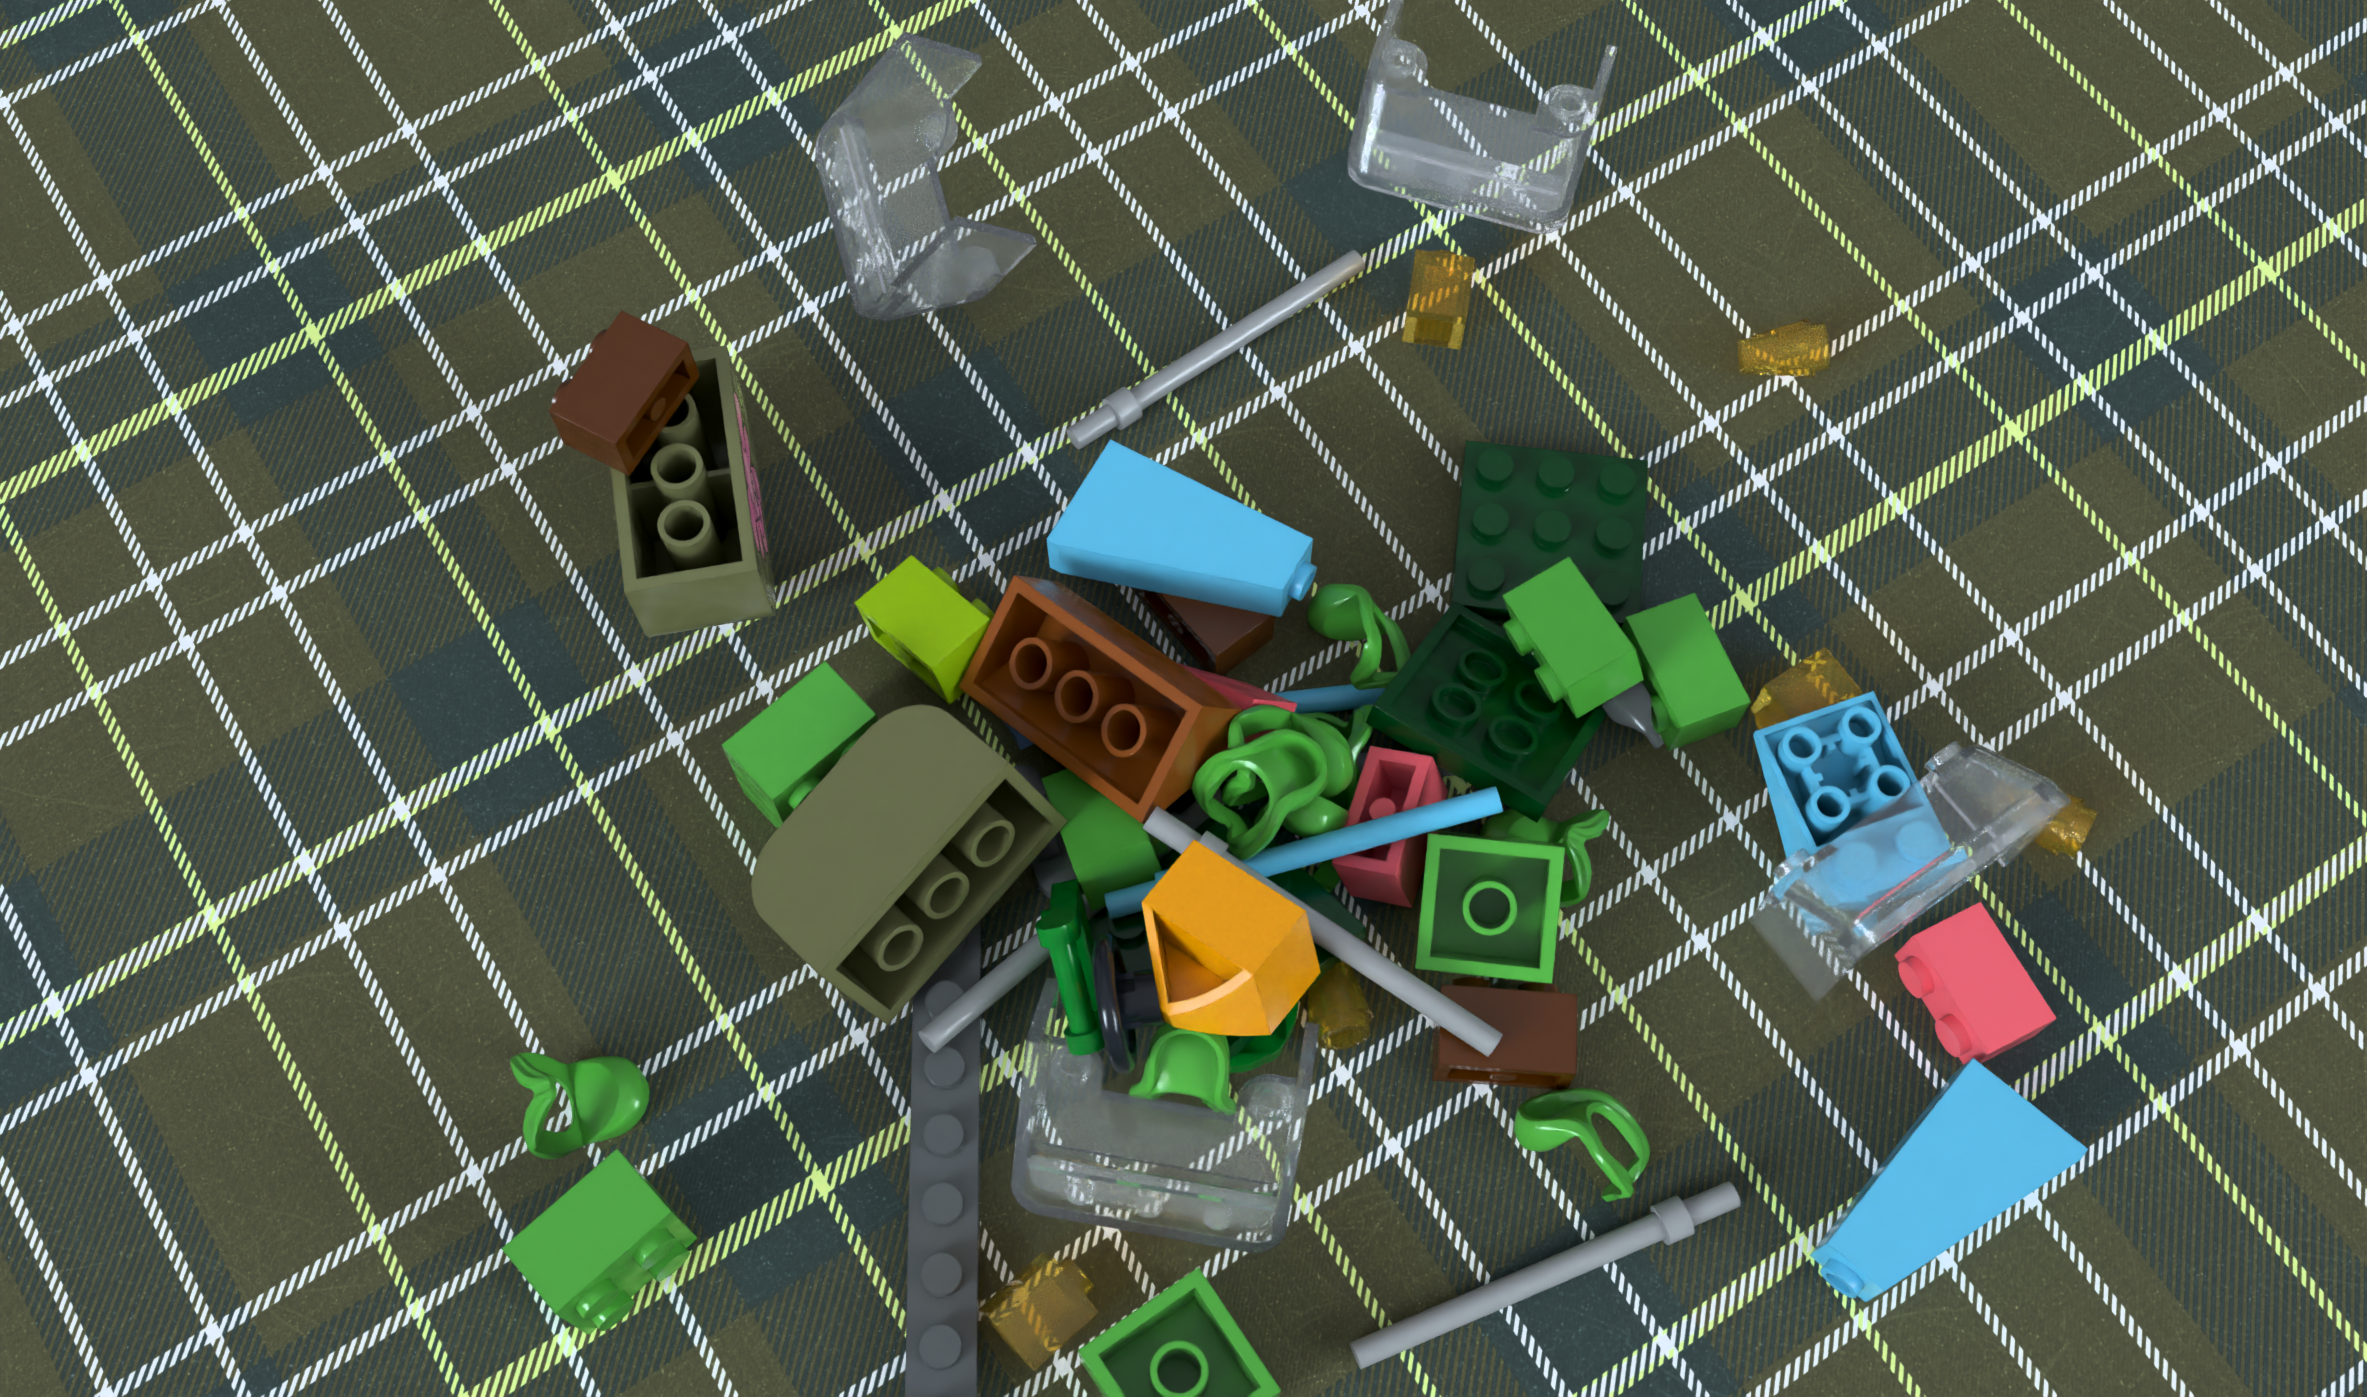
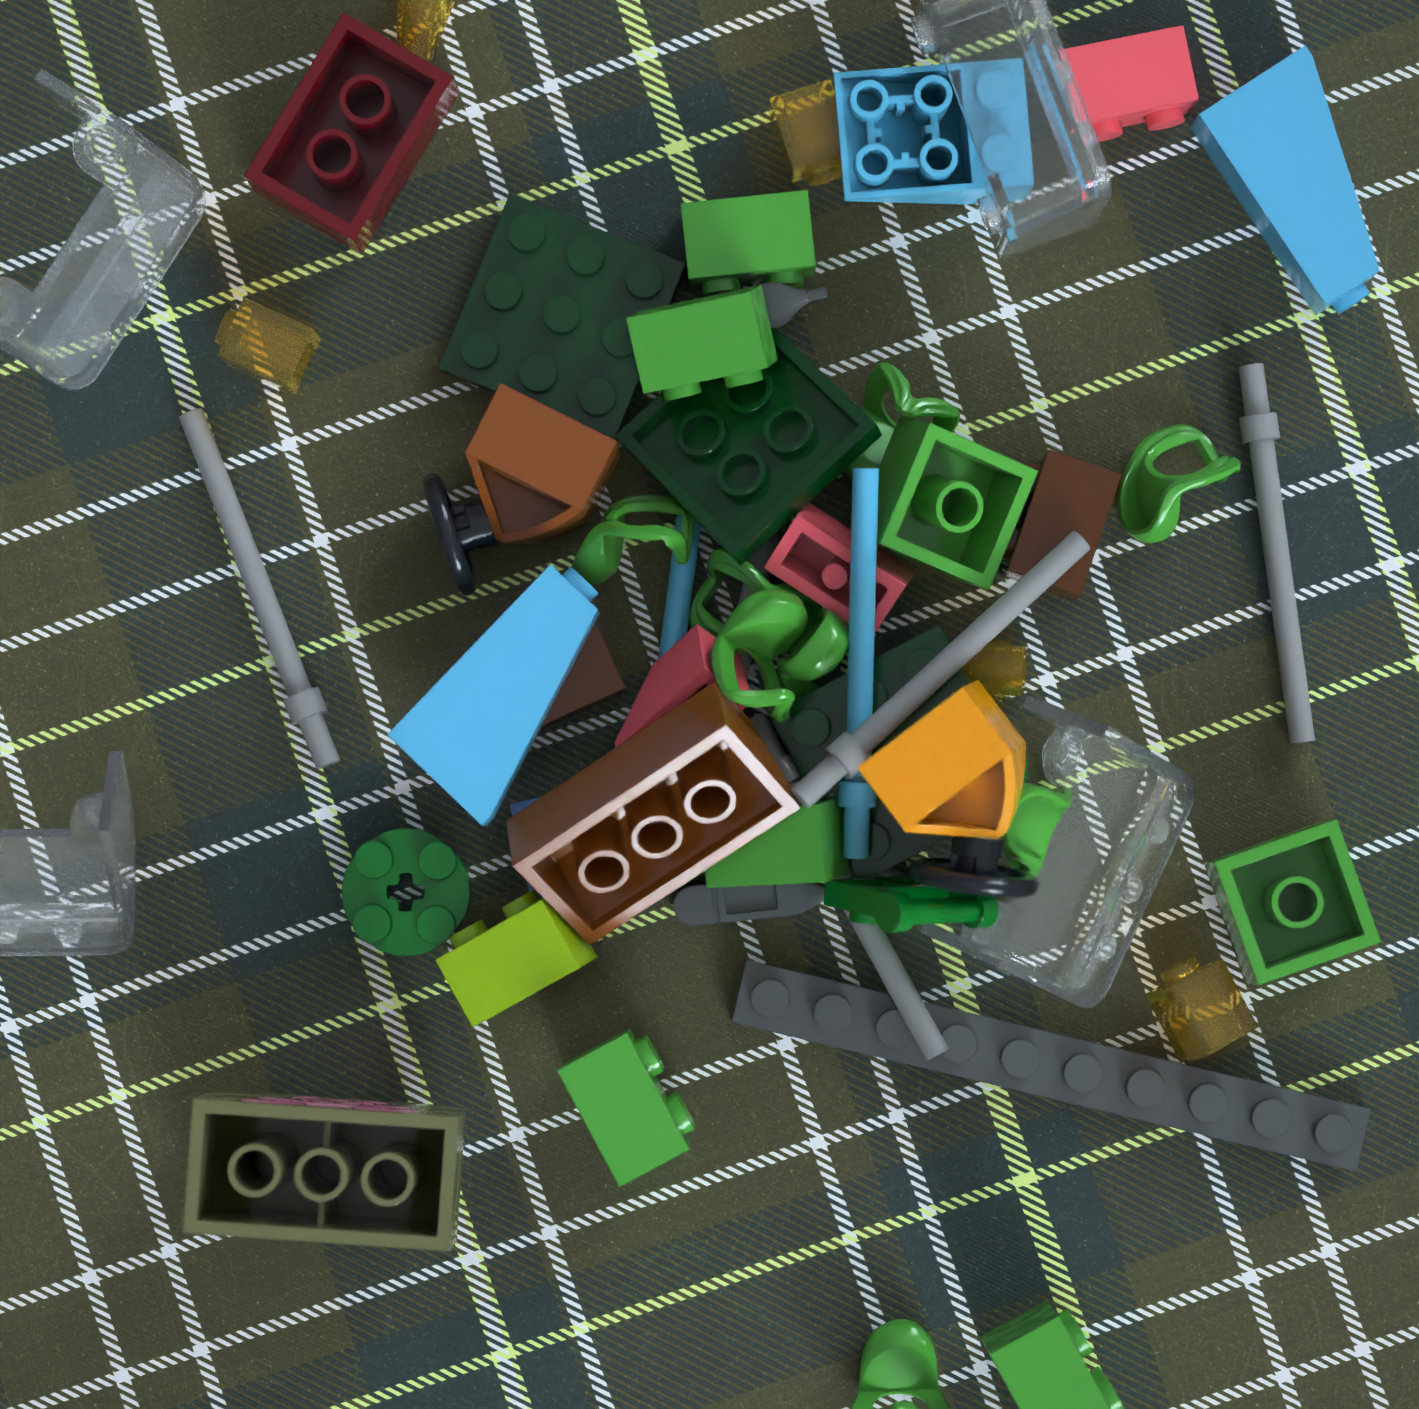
camera: 70 degrees left, 20 degrees up
(624, 392) = (236, 1213): reddish brown brick -> none
(899, 855) = (767, 1043): olive brick -> none
(966, 500) = (379, 918): none -> green plate
(1289, 766) = (787, 656): bright green piece -> none
(1388, 524) = (533, 477): none -> dark orange piece
(1654, 312) = (352, 133): none -> dark red brick

